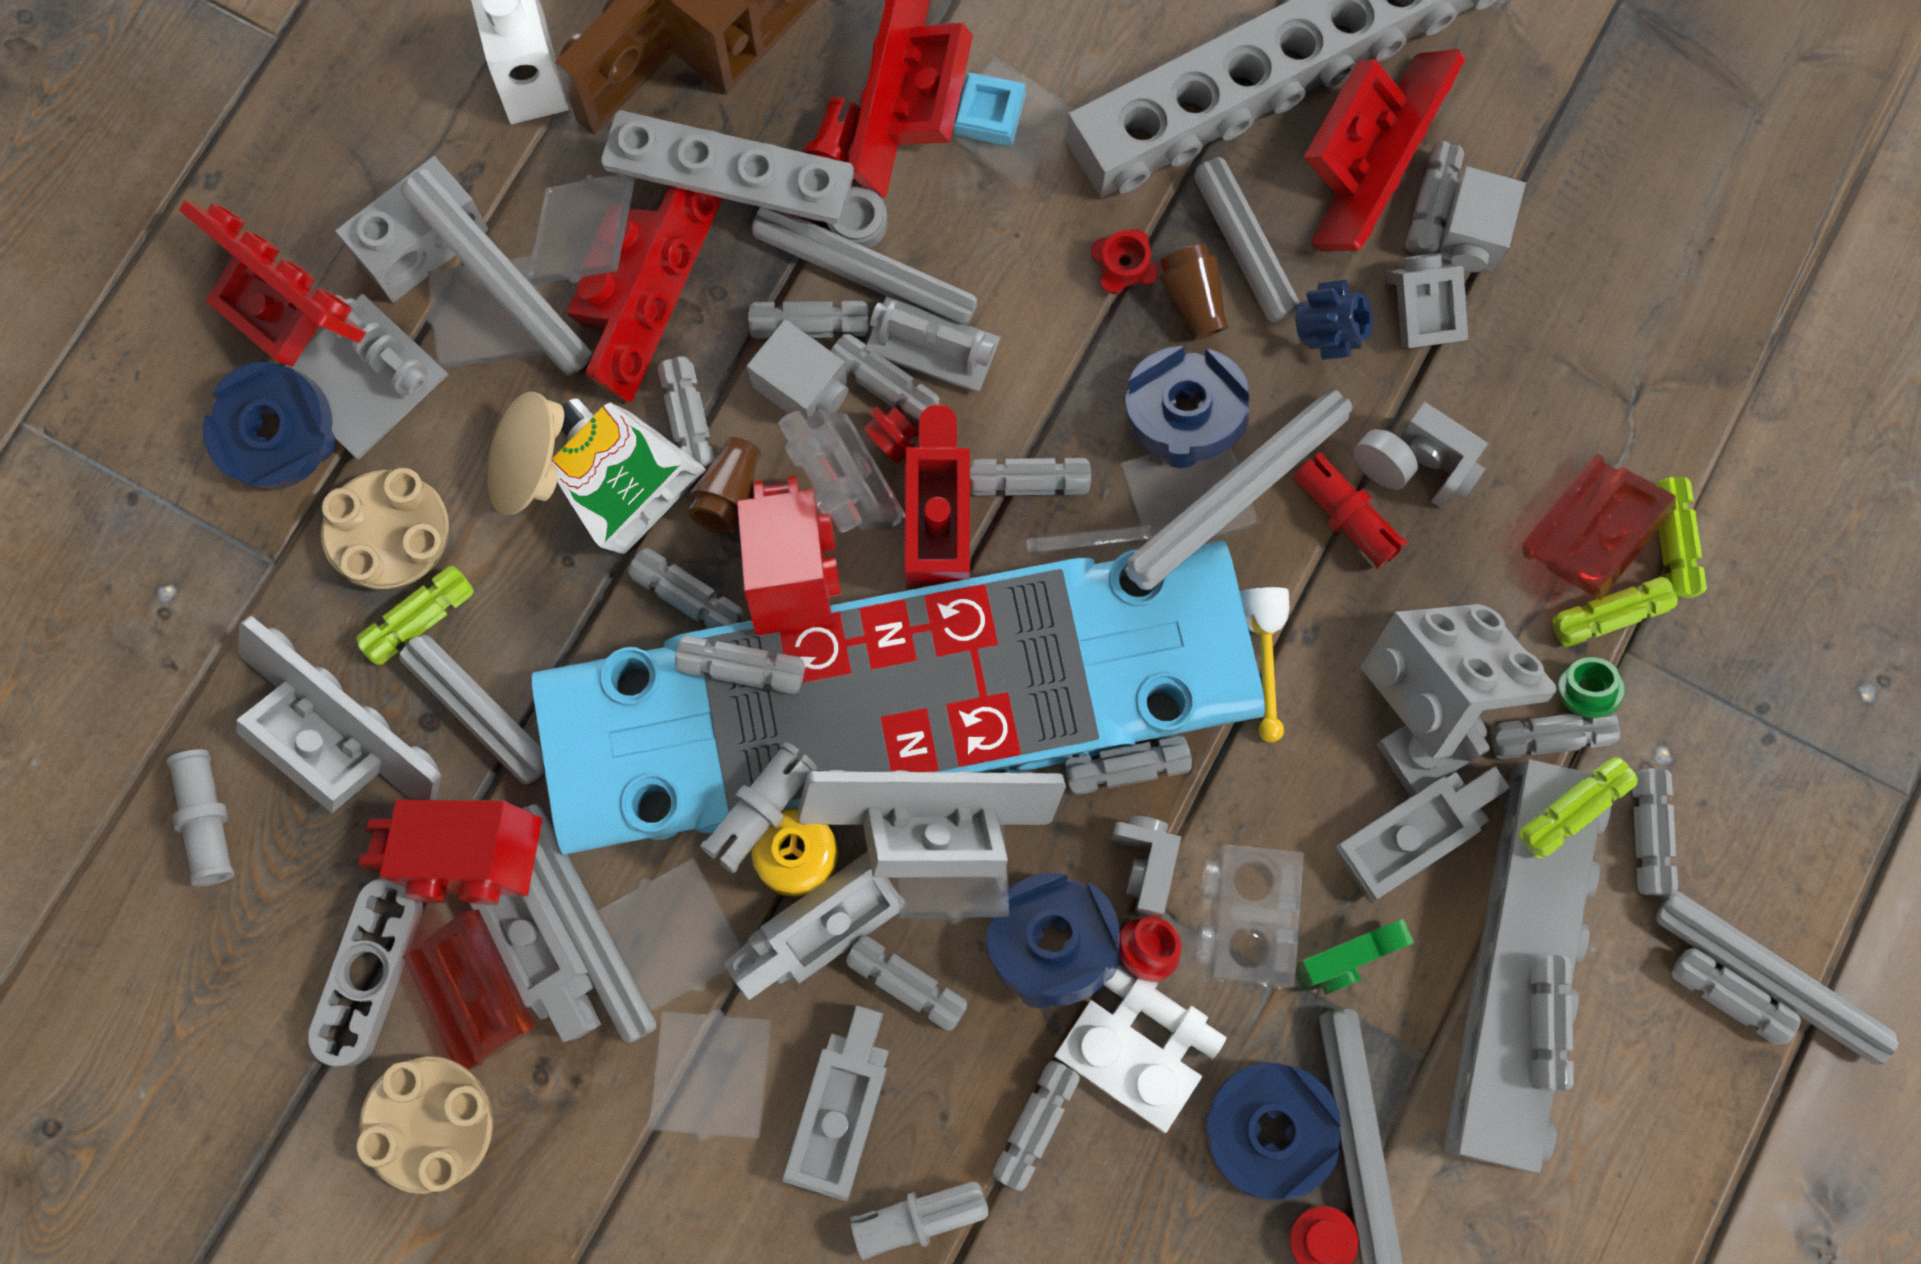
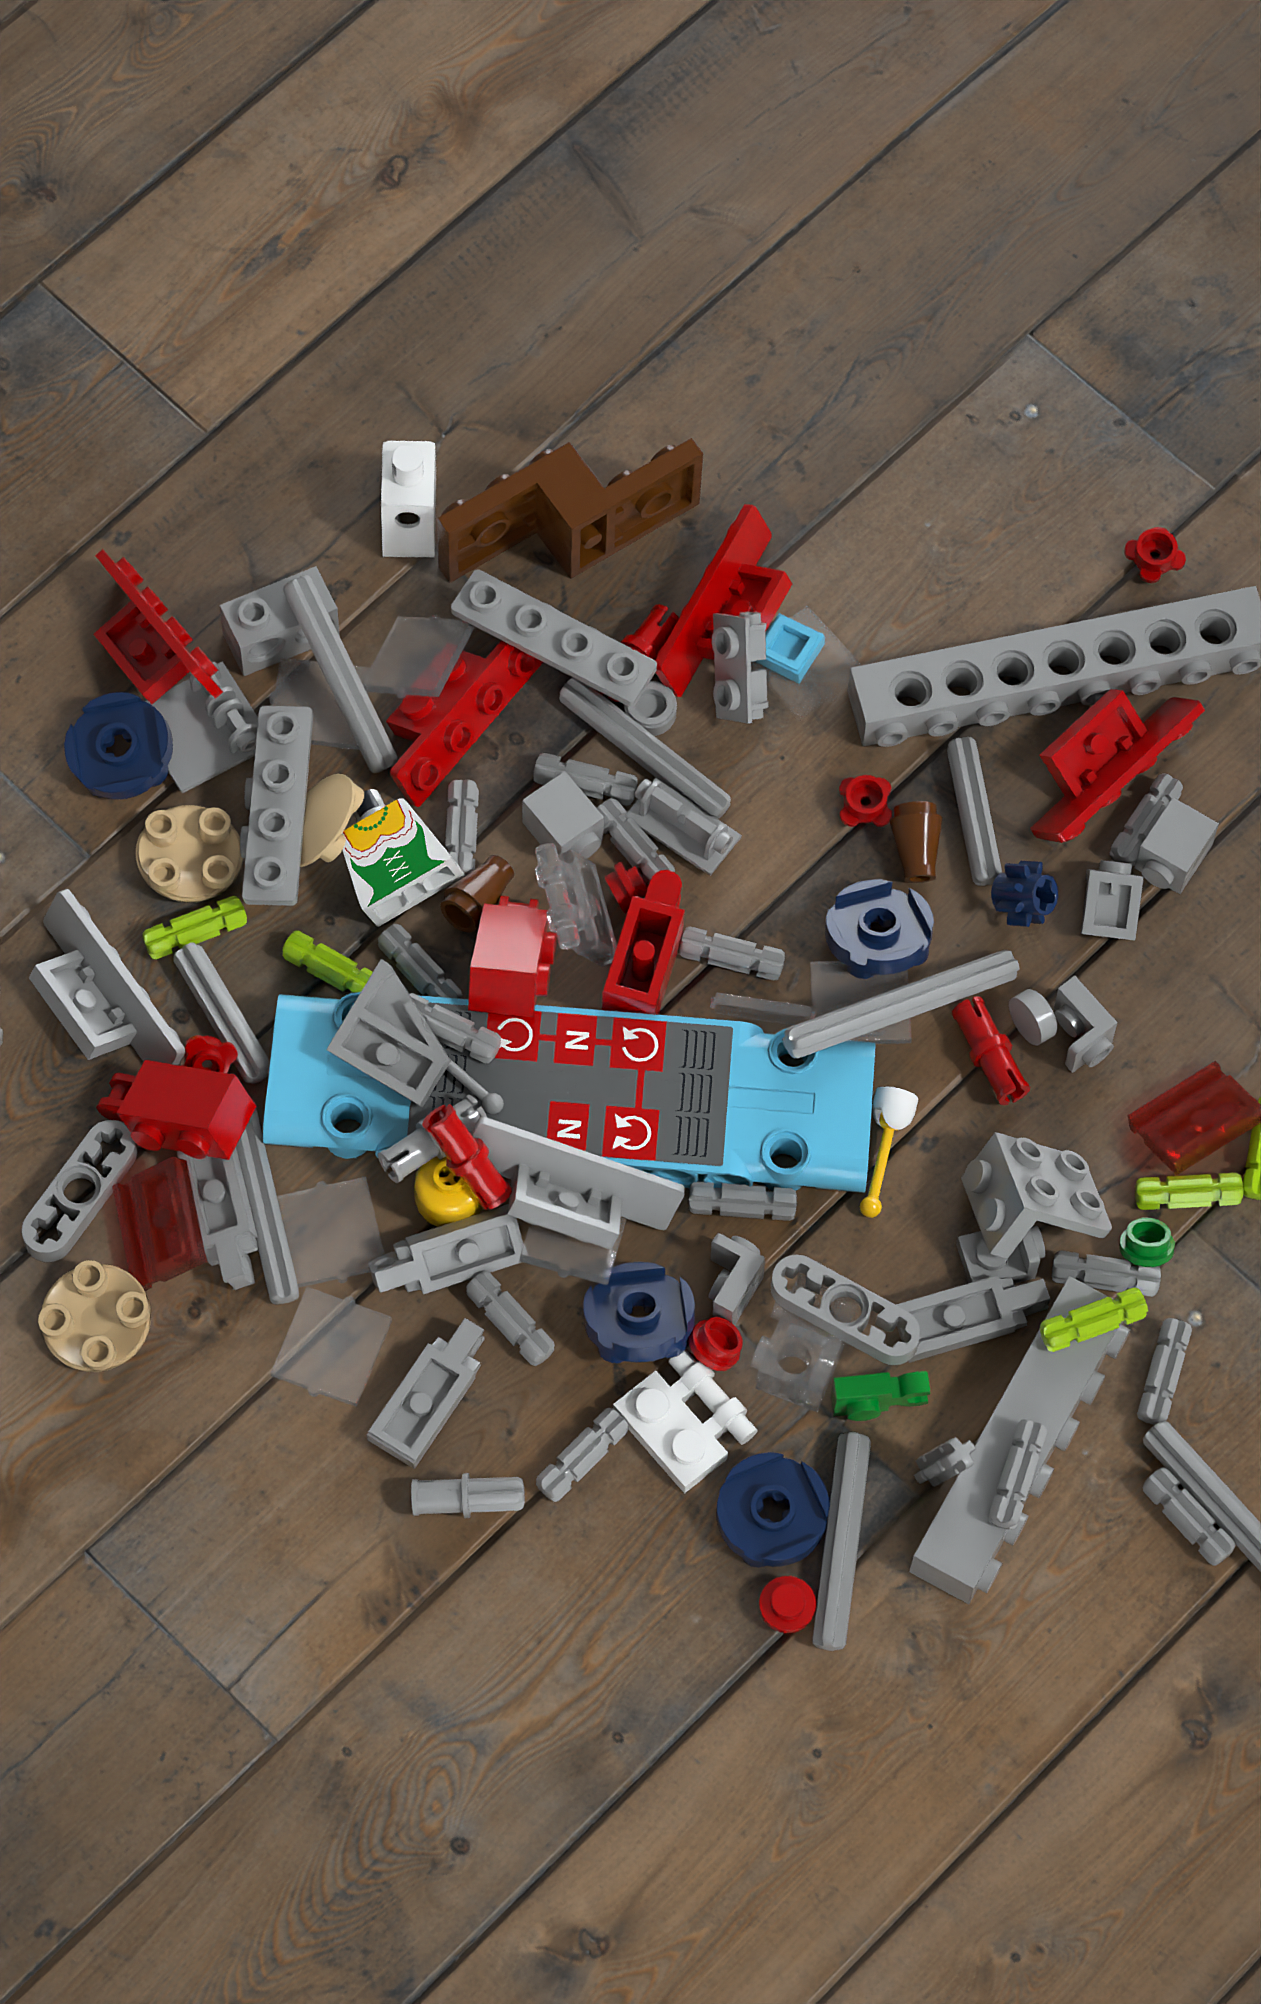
camera: 15 degrees right, 10 degrees down
(467, 451) = (276, 806): none -> light grey bracket
(468, 762) = (209, 1048): none -> red plate
(584, 618) = (325, 963): none -> lime axle
(676, 700) = (391, 1038): none -> light grey wing
(719, 692) = (491, 1102): none -> light grey hinge
(806, 824) = (467, 1157): none -> red pin
(948, 168) = (738, 690): none -> light grey hinge
(1339, 905) = (839, 1286): none -> light grey beam
(1459, 1025) = (944, 1461): none -> light grey axle

